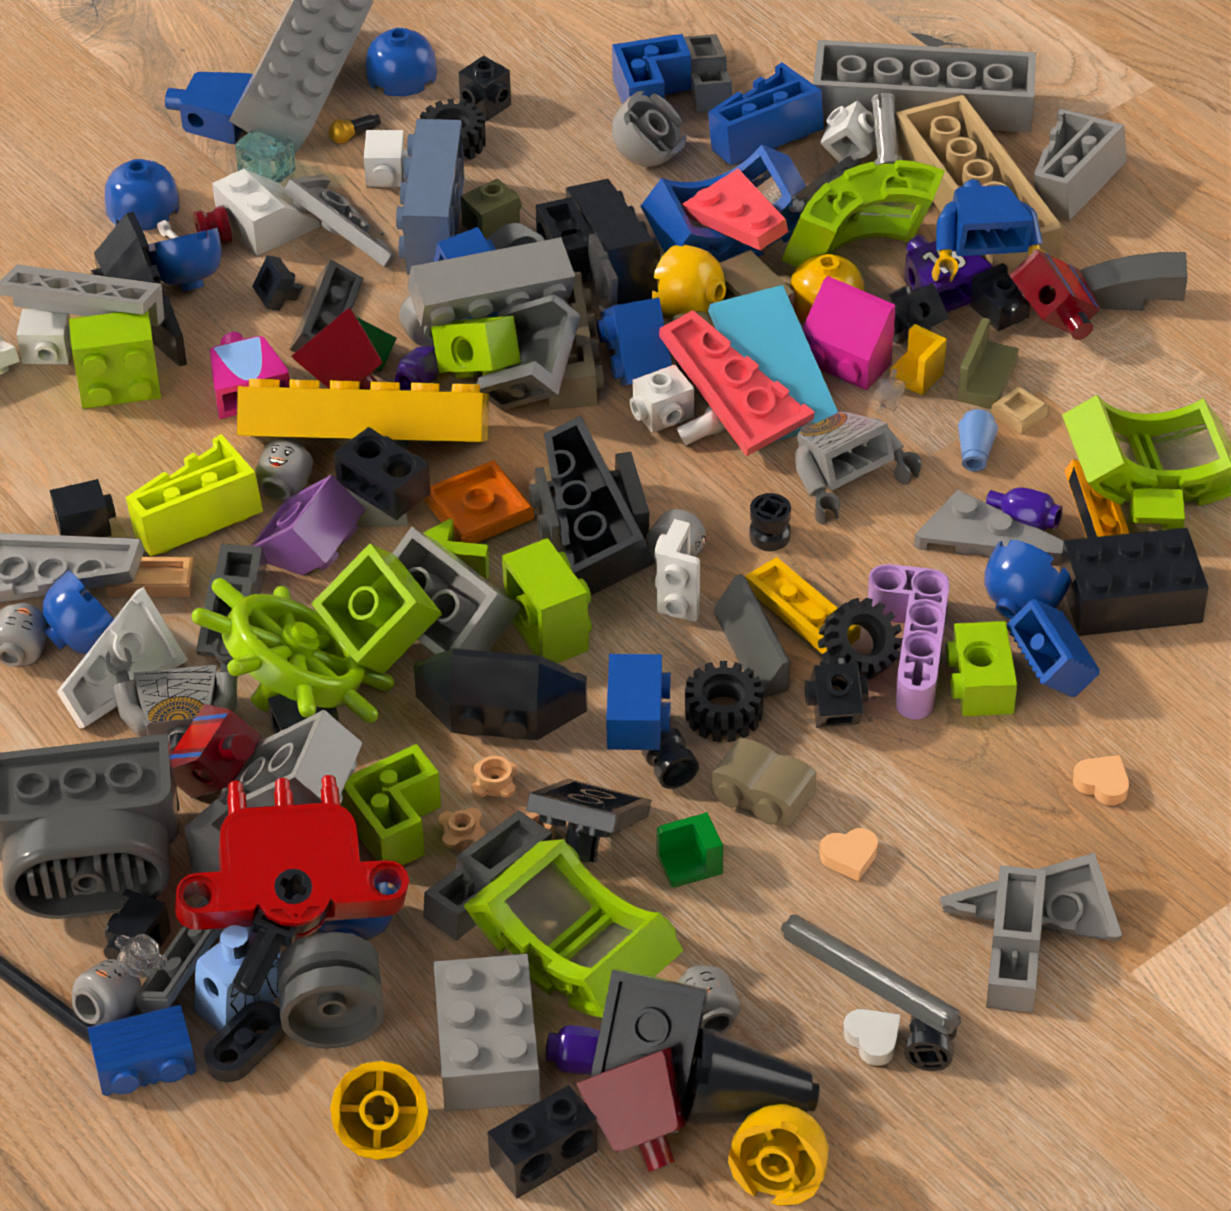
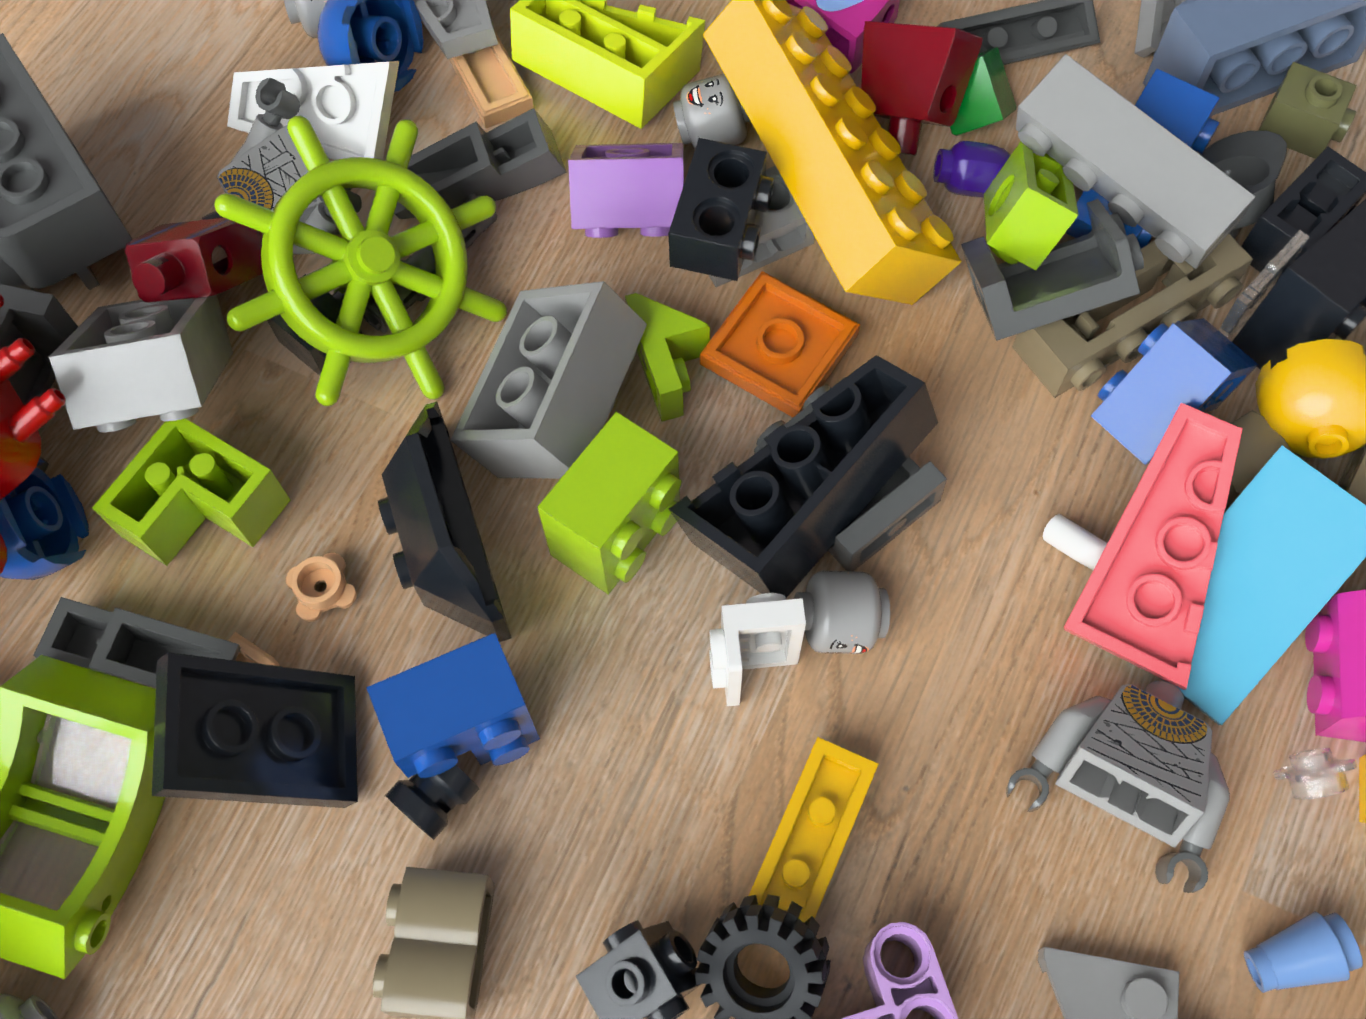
camera: 65 degrees right, 20 degrees up
(376, 608) = (468, 313): lime brick -> none
(461, 828) = (228, 601): light nougat plate -> none
(662, 399) = (1089, 470): white brick -> none
(689, 850) = (278, 901): green panel -> none
(723, 683) = (551, 782): black tyre -> none
(753, 636) = (712, 802): dark grey slope -> none
(770, 521) = (937, 732): black wheel -> none

